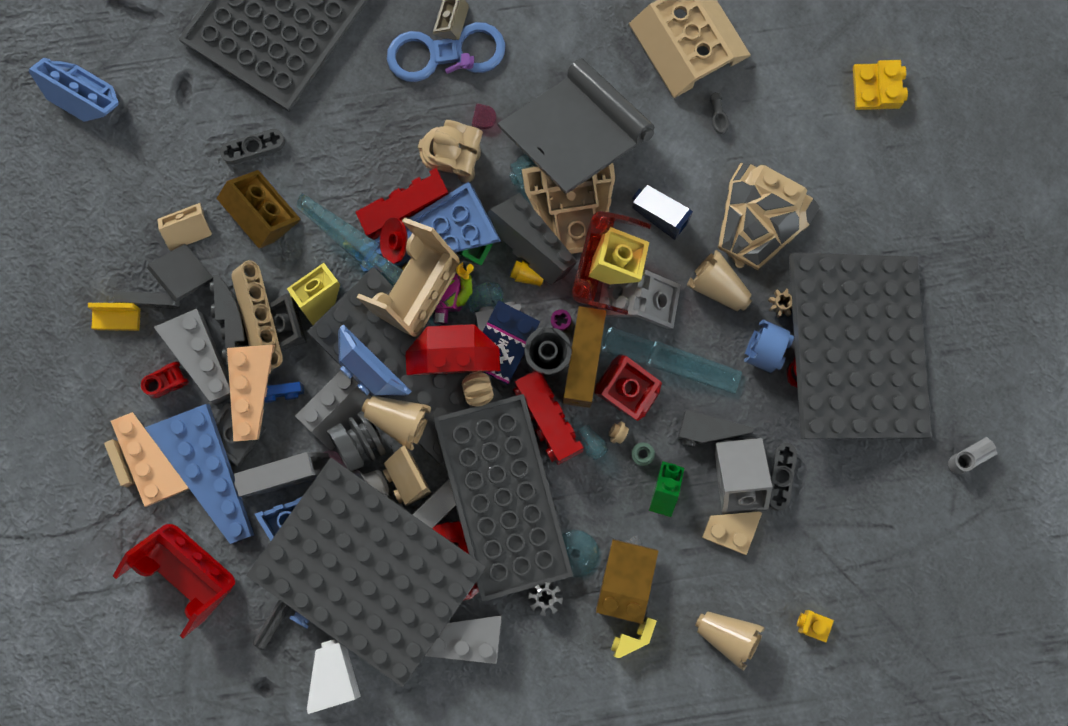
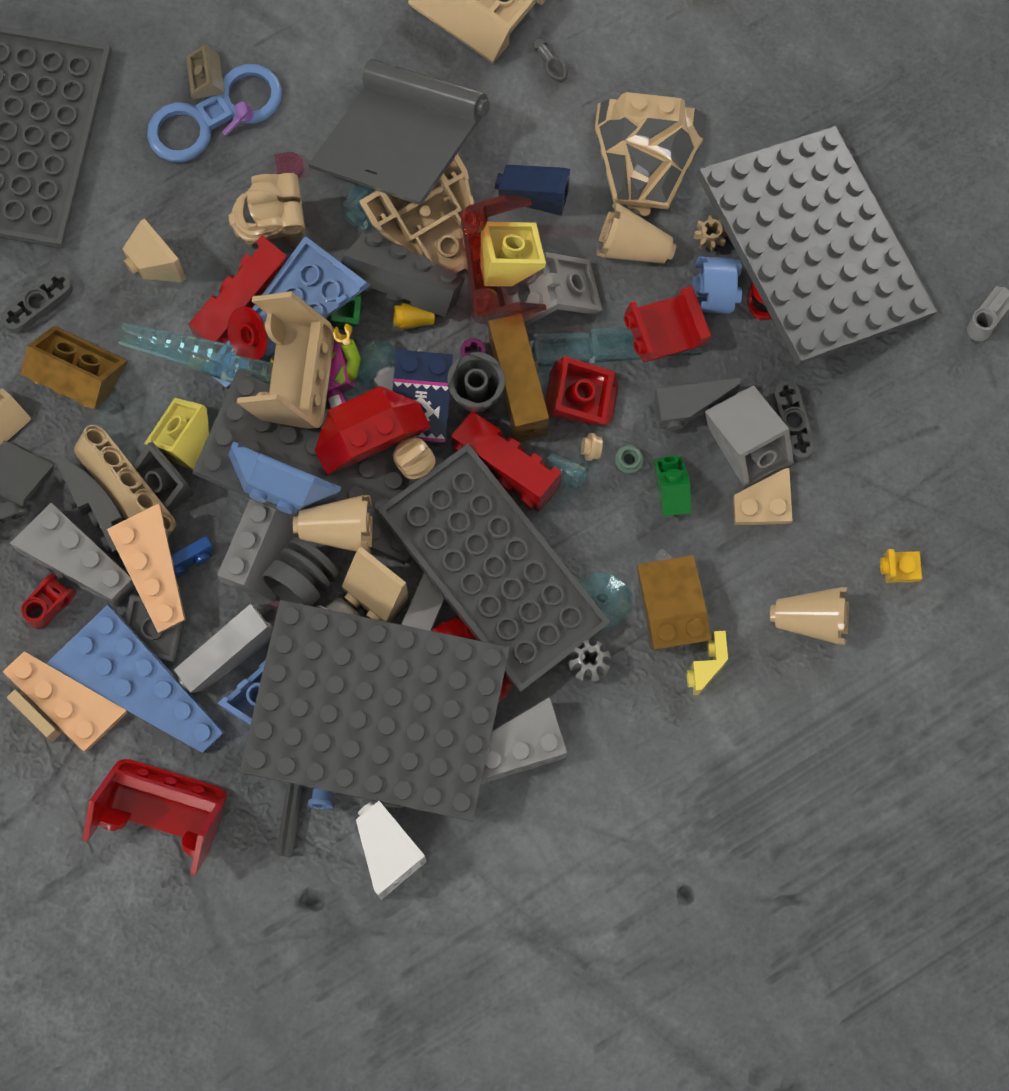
camera: 25 degrees left, 5 degrees down
(349, 147) = (151, 256): none -> tan slope
(716, 363) = (667, 326): none -> red panel

